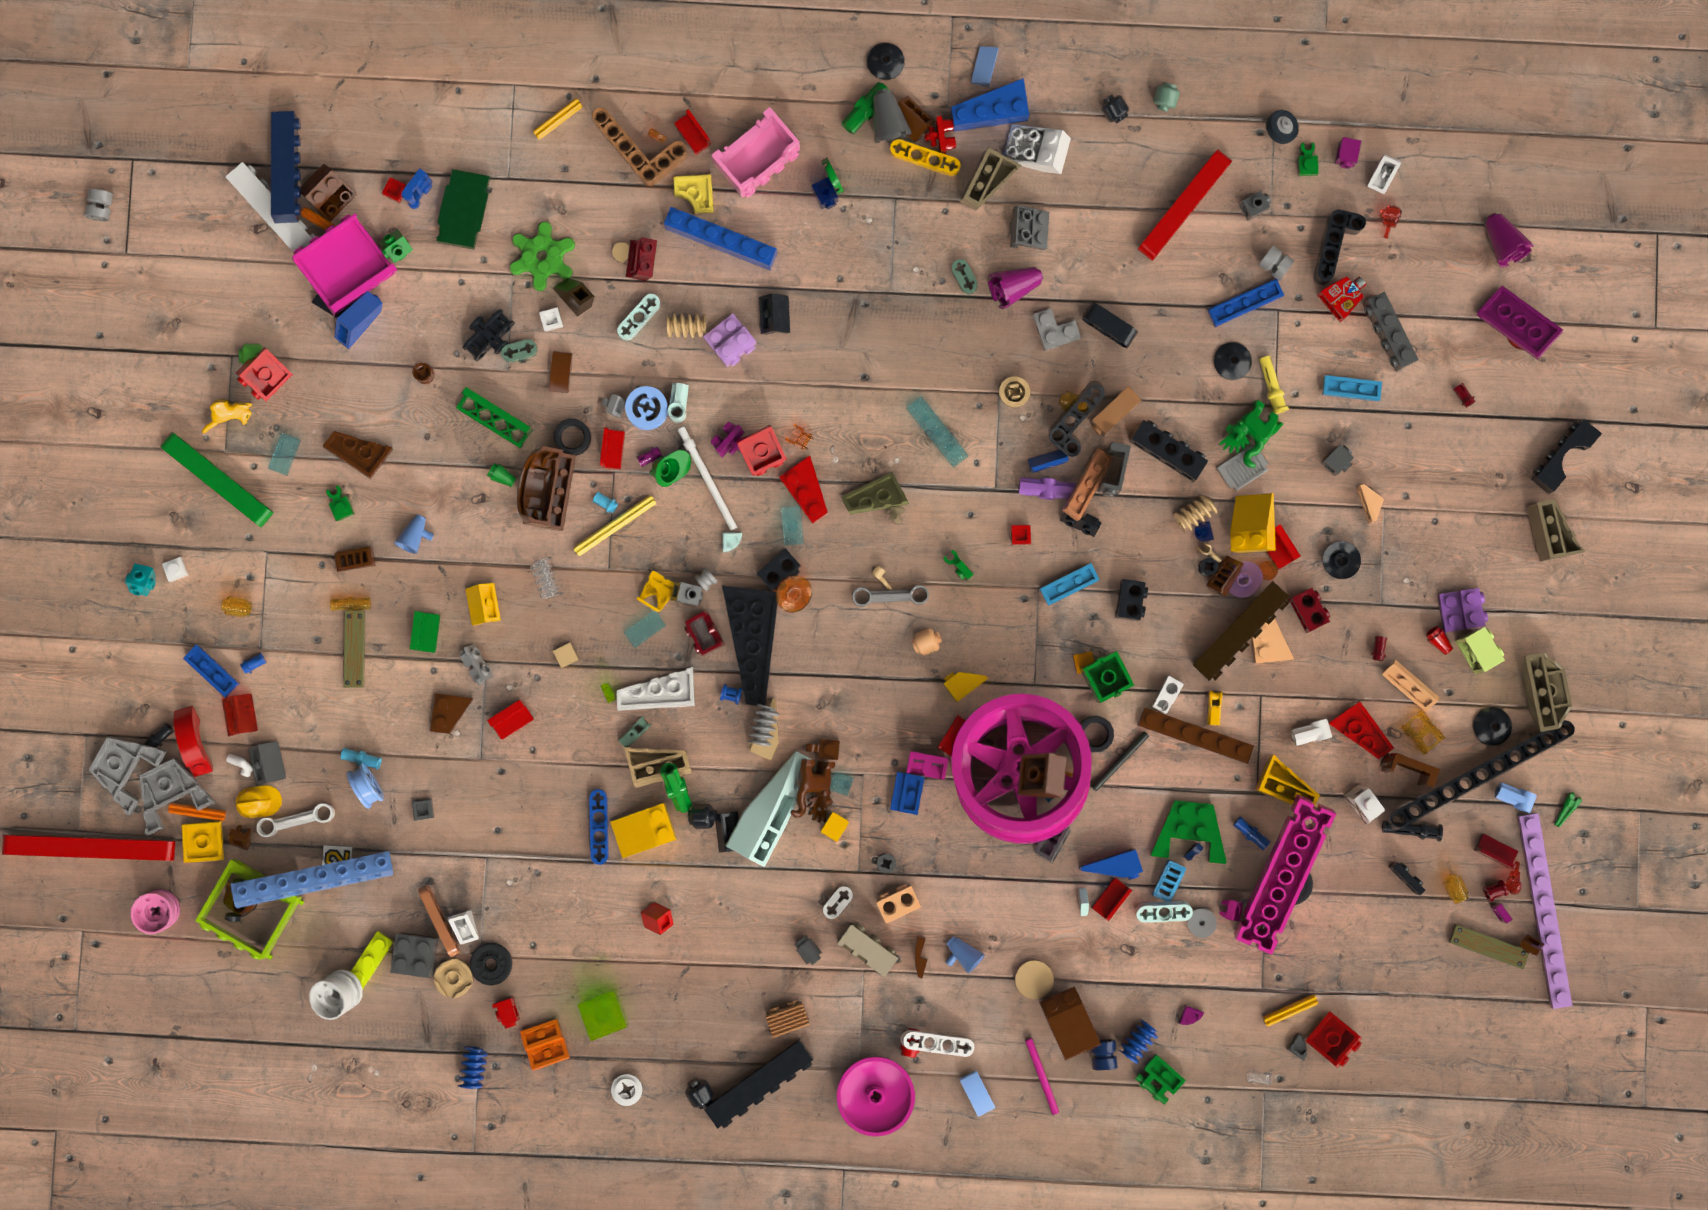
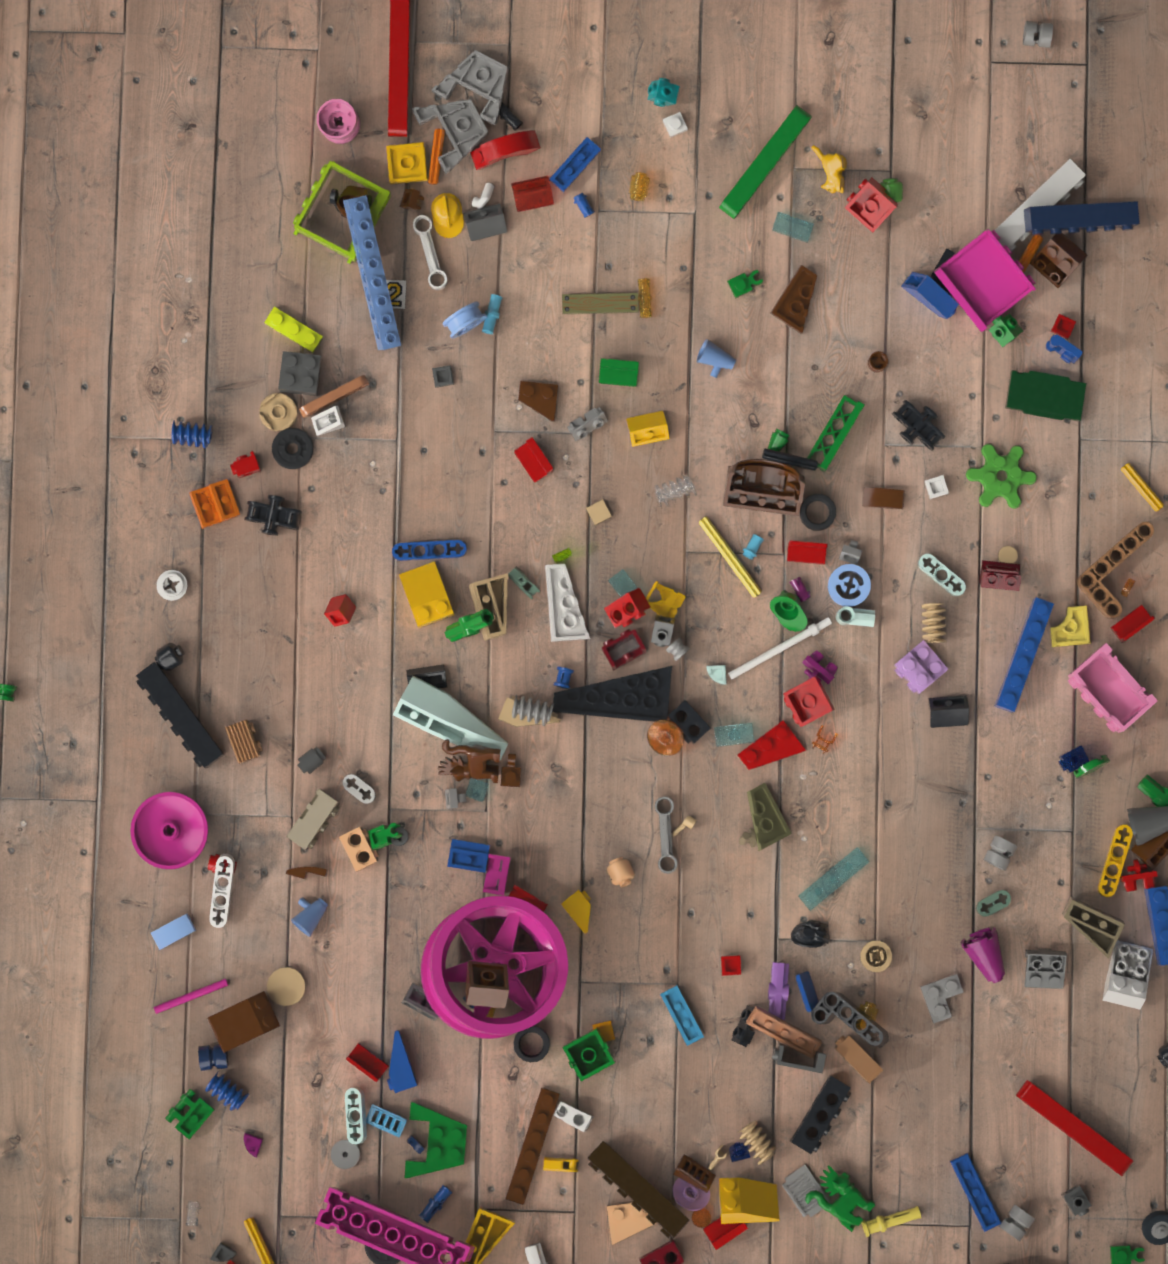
camera: 85 degrees right, 0 degrees up
(335, 994) = (260, 299): white wheel -> none
(369, 556) = (692, 315): reddish brown slope -> none
(518, 346) = (899, 457): sand green beam -> none
(518, 462) = (790, 459): none -> black axle
(556, 991) = (266, 514): none -> black axle
(575, 295) = (961, 510): dark brown slope -> none
(603, 1014) = (244, 560): clear neon green brick -> none
(662, 627) = (627, 607): none -> red brick
(702, 816) = (441, 652): black head -> none
(835, 826) = (433, 784): yellow panel -> none
(849, 808) = (453, 798): none -> light grey tile
(885, 879) = (382, 835): none -> green plate
(915, 267) = (1000, 853): none -> light grey wheel
(961, 569) = (693, 906): green plate -> none
(991, 456) = (810, 934): none -> black hat
(1083, 902) = (363, 1034): light aqua tile -> none
(1109, 325) = (947, 1052): black beam -> none
(1119, 762) = (504, 1069): pearl dark grey bar -> none
(1126, 599) = (668, 1073): black brick -> none
(1214, 566) = (702, 1161): black bush -> none
(1230, 370) = (908, 1172): black dish -> none
(1233, 911) = (358, 1186): dark pink tile -> none

